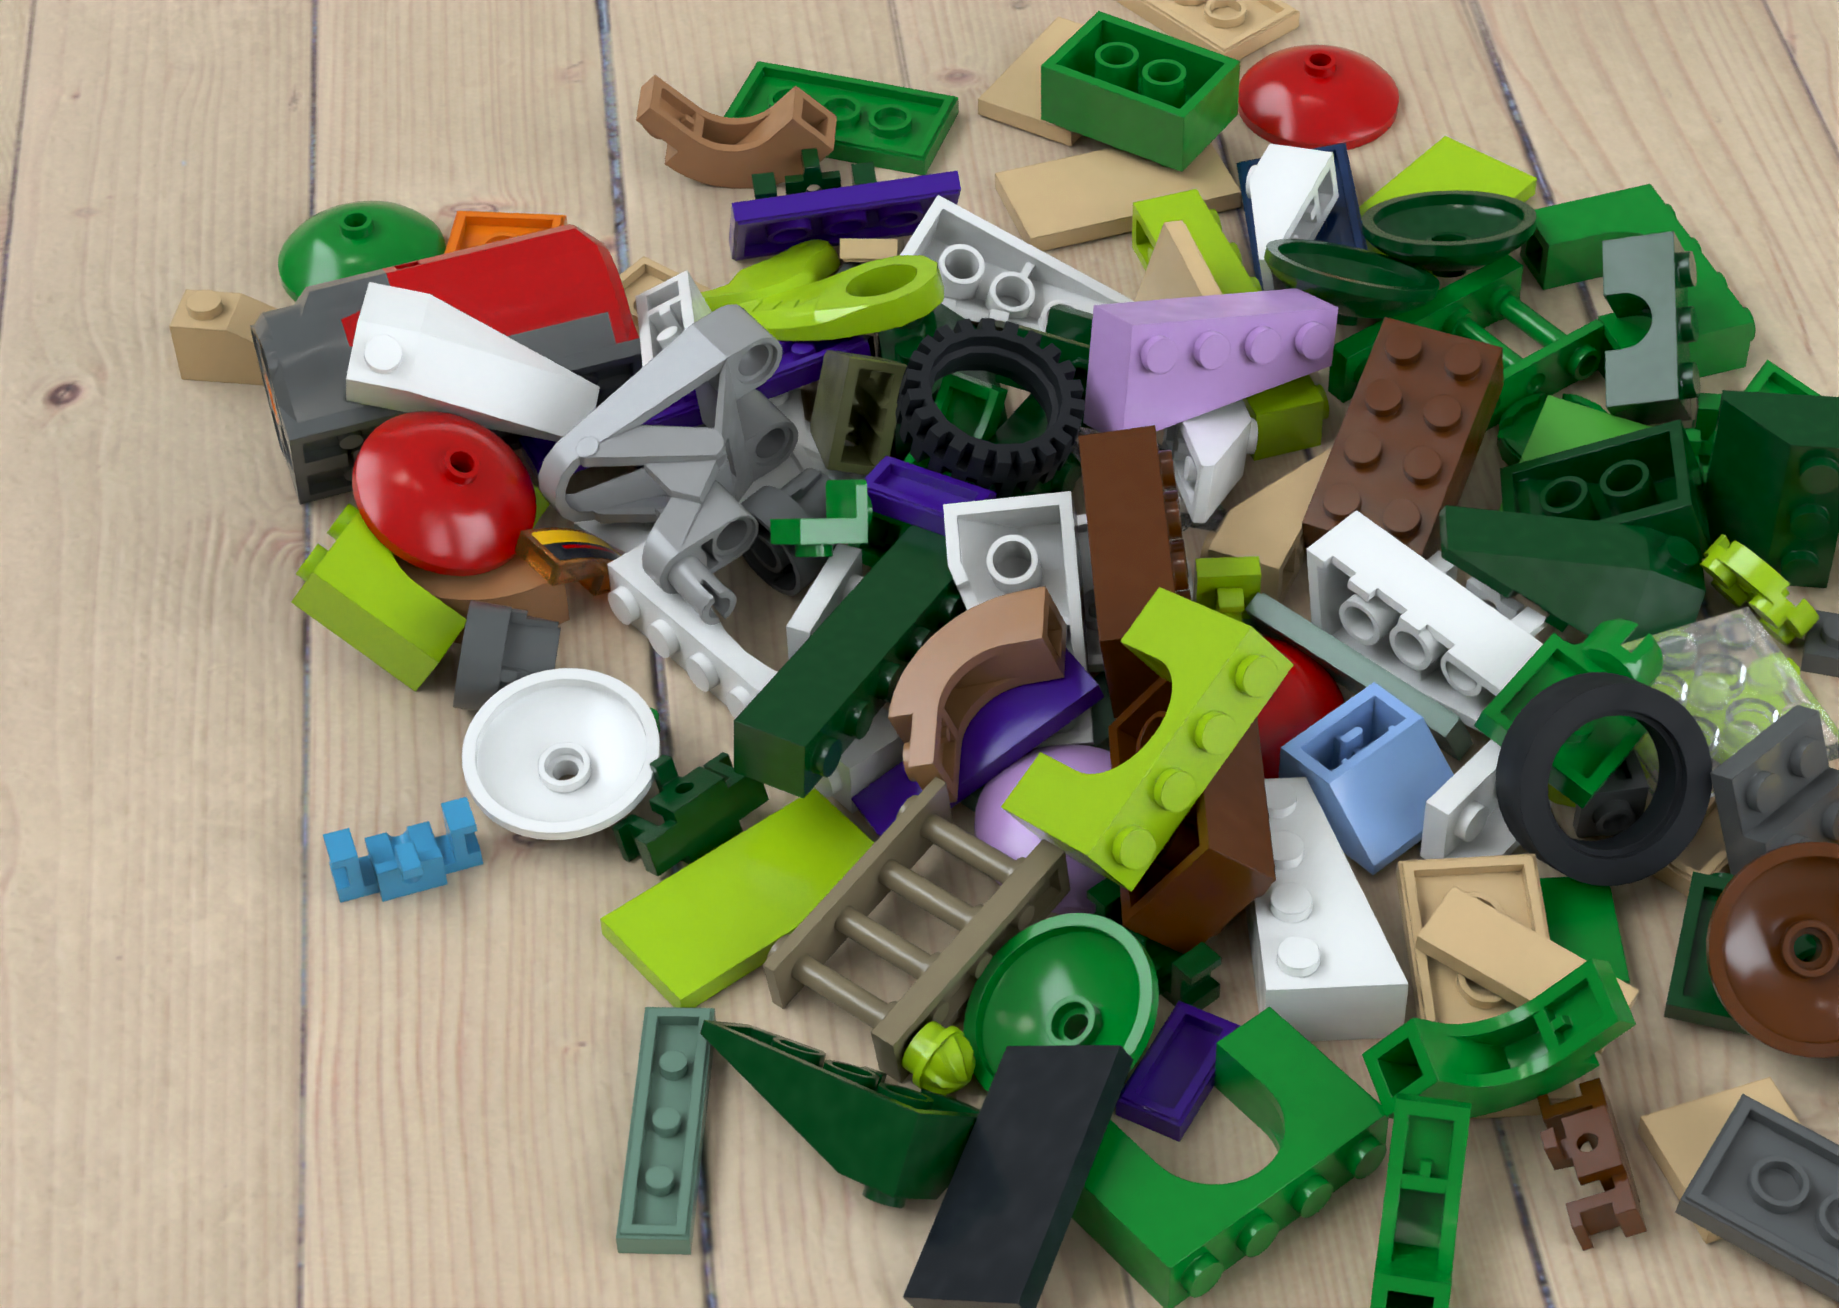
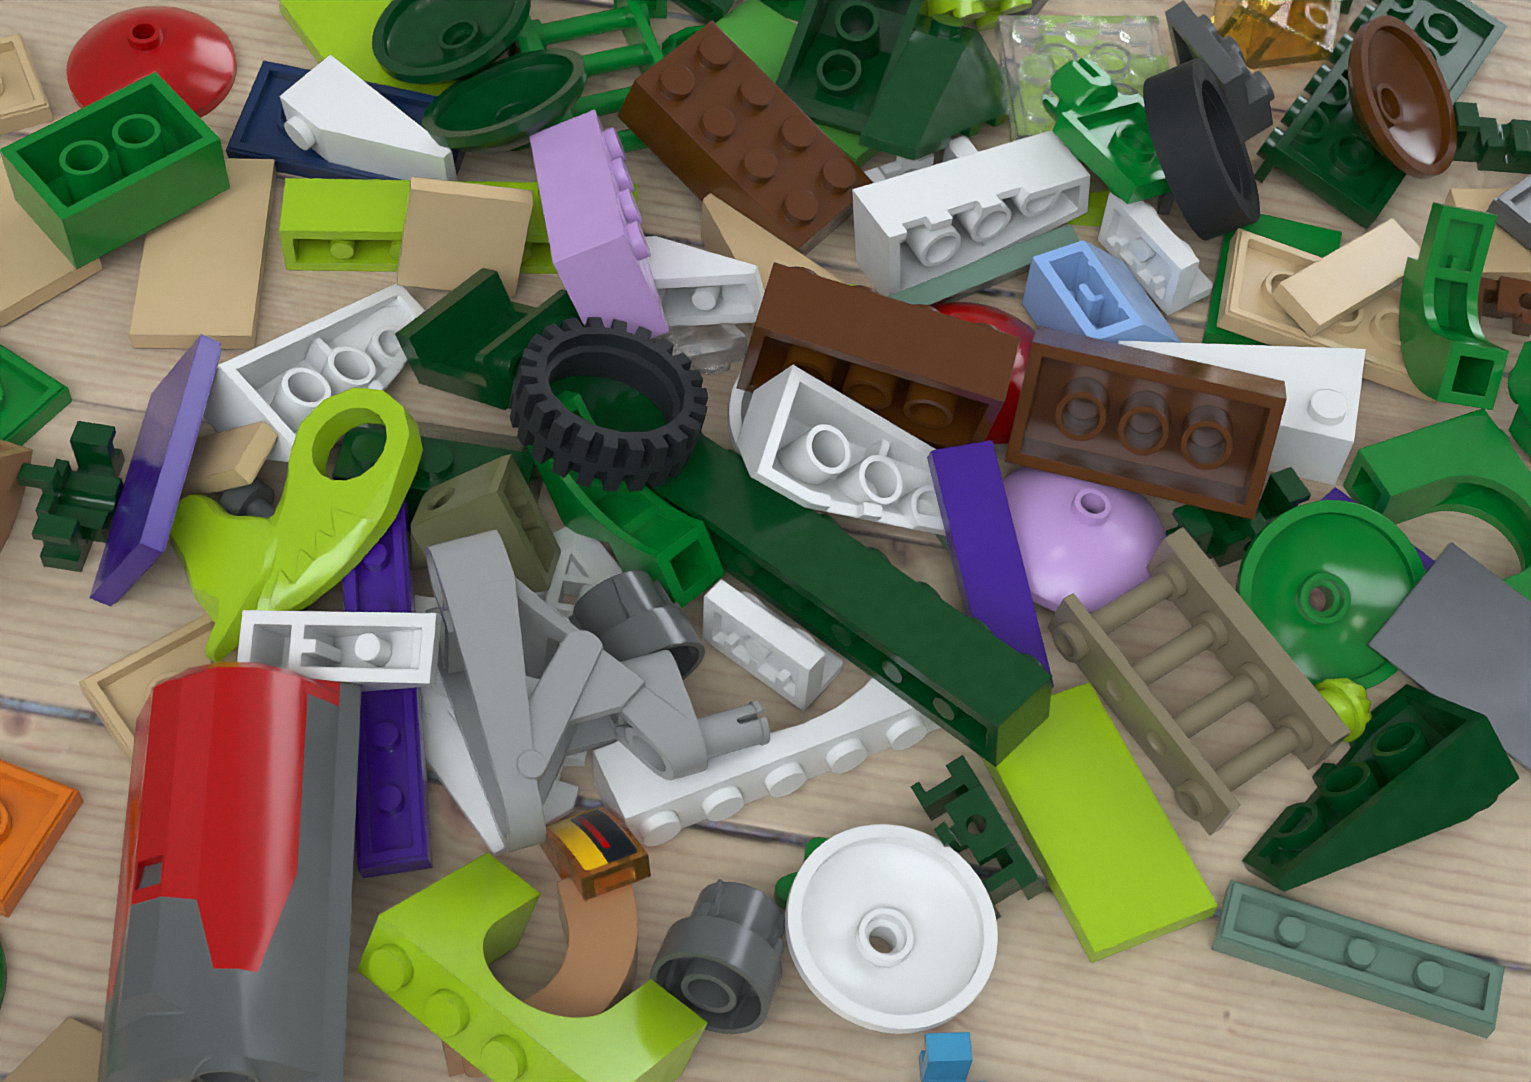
camera: 80 degrees left, 10 degrees up
(432, 357) = (329, 876): white wedge -> none
(432, 511) = (499, 941): red dish -> none
(846, 521) = (701, 586): green bracket -> none
(917, 493) = (688, 501): dark purple tile -> none
(965, 666) = (942, 549): medium nougat arch -> none
(1127, 814) = (1144, 308): lime arch -> none

